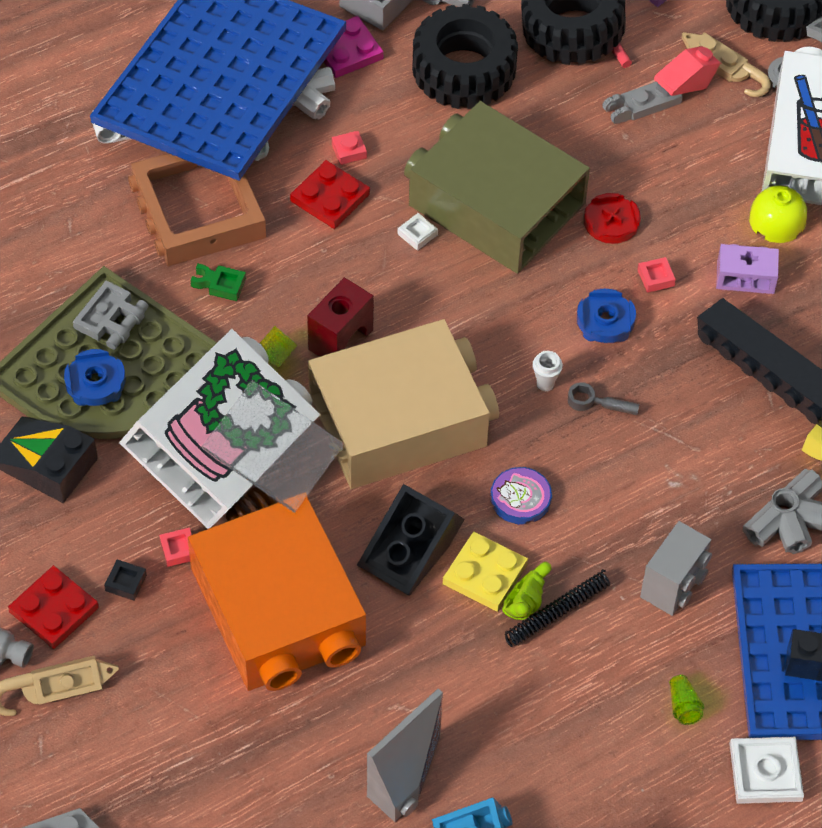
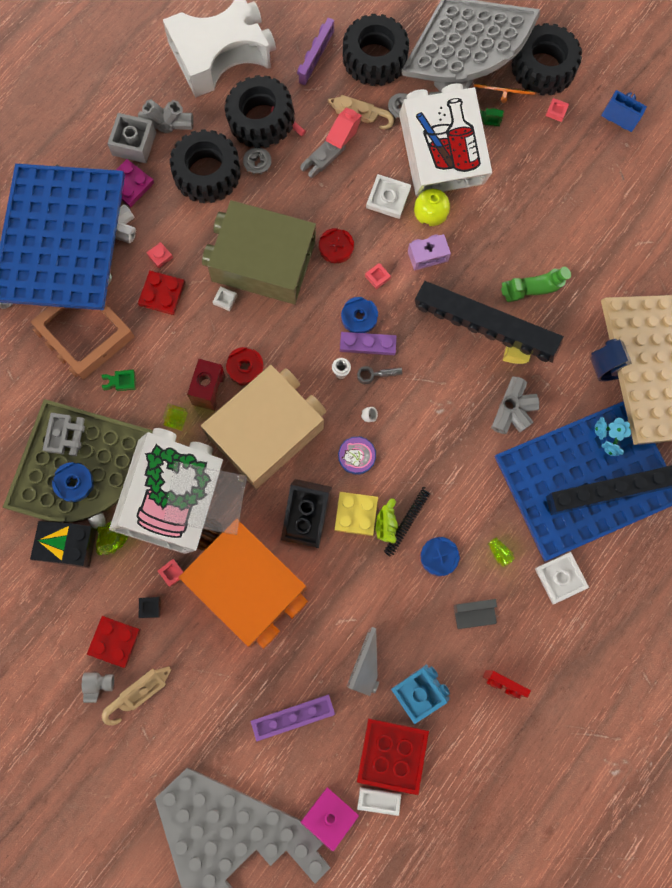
camera: 25 degrees left, 20 degrees up
(105, 443) = (98, 520): none -> white hinge
(113, 470) = (108, 540): none -> clear neon green hair
(267, 802) = (292, 717): none -> medium lavender plate
(404, 308) = (234, 361): none -> red plate
(540, 68) = (252, 155): none -> light grey gear
(564, 444) = (369, 411): none -> white hinge
(587, 674) = (440, 556): none -> blue tile
(603, 357) = (368, 343): none -> medium lavender plate
(609, 767) = (475, 614): none -> dark grey panel
(676, 568) = (467, 473): light grey brick -> none
(718, 180) = (388, 196): none -> white plate

